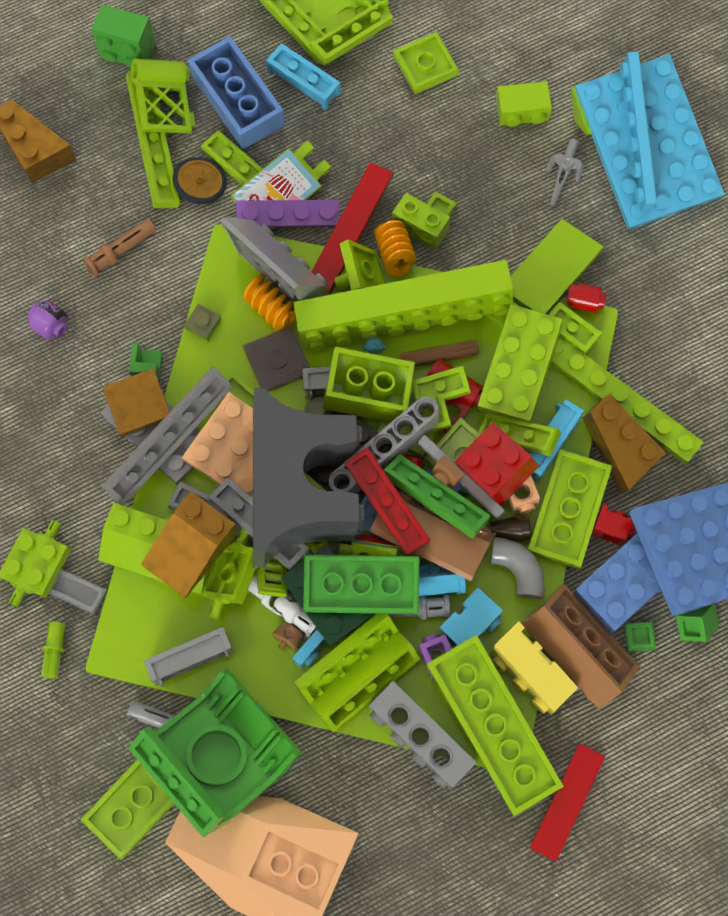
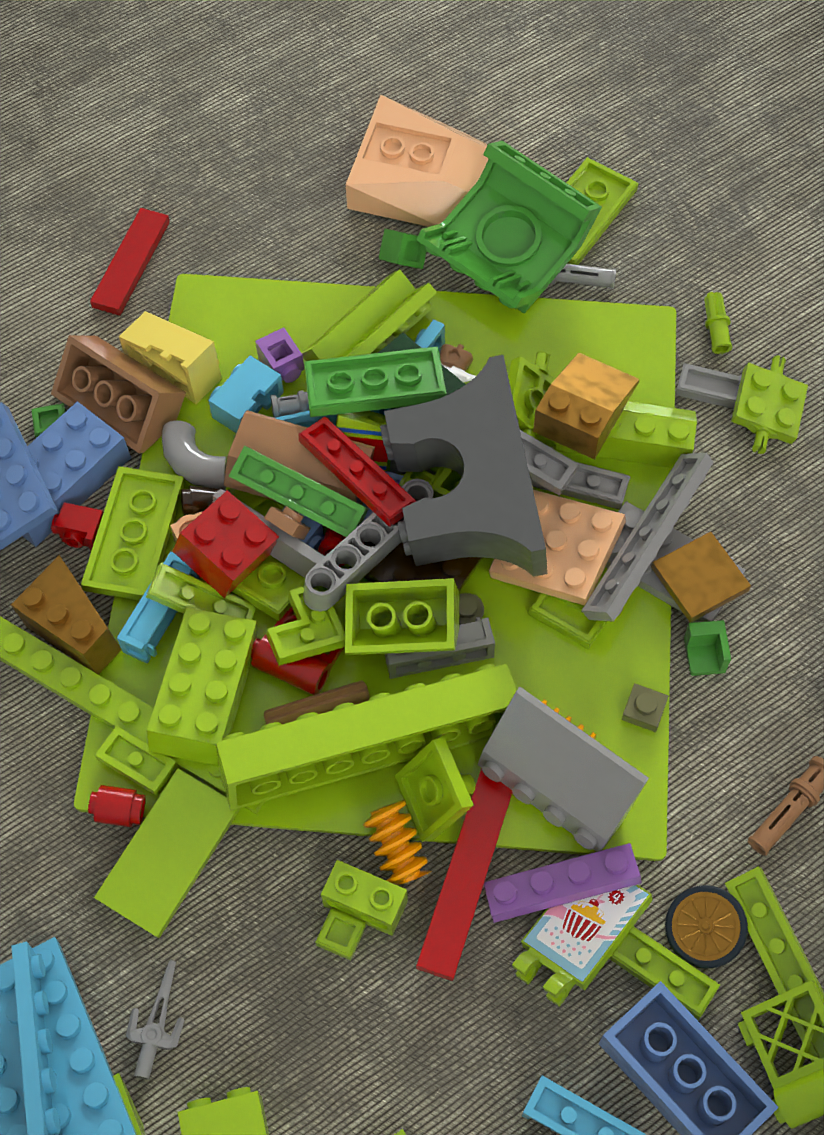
camera: 170 degrees right, 10 degrees down
(188, 656) = (562, 323): light grey container -> none
(276, 359) = (538, 665): tile -> none
(313, 772) = (402, 249): none -> bright green panel
(395, 699) = (289, 282): light grey brick -> none
(494, 725) = (213, 297): lime plate -> none

